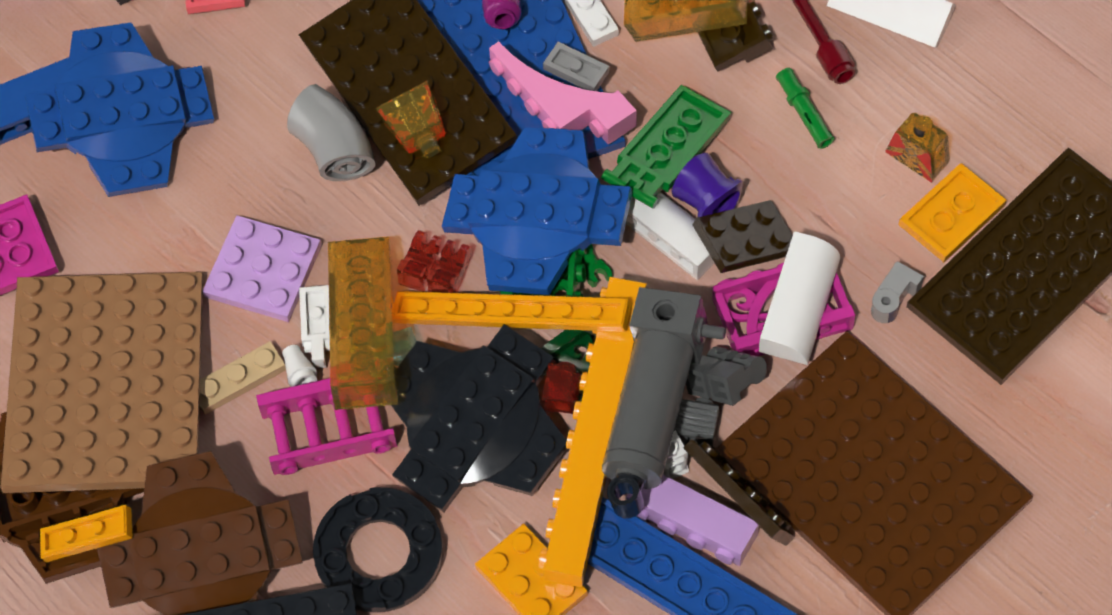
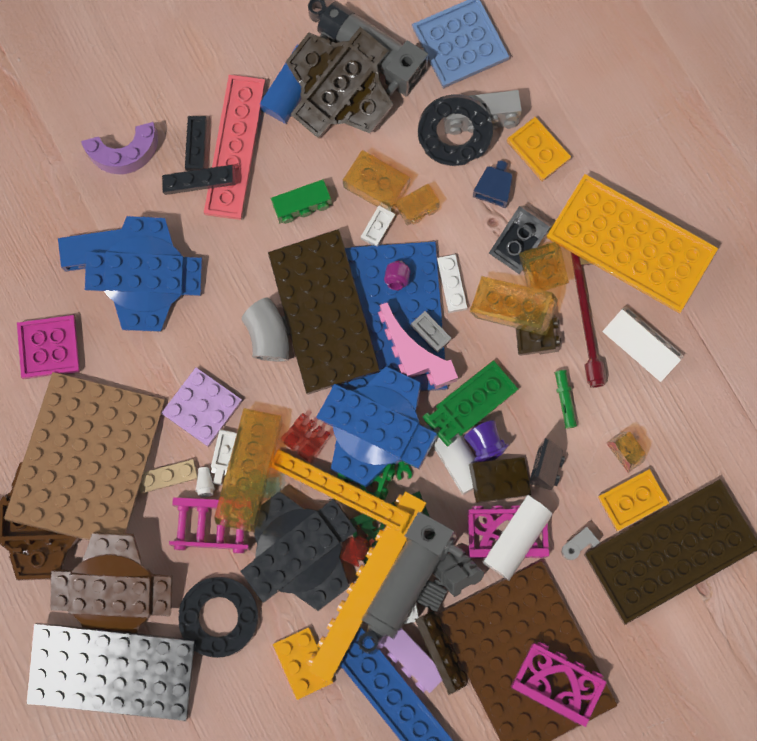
camera: 15 degrees right, 15 degrees up
(86, 533) = (46, 563): light orange tile -> none
(414, 120) = (319, 343): clear yellow torso -> none
(808, 193) = (546, 465): none -> black slope
(946, 457) = (531, 690): none -> dark pink fence

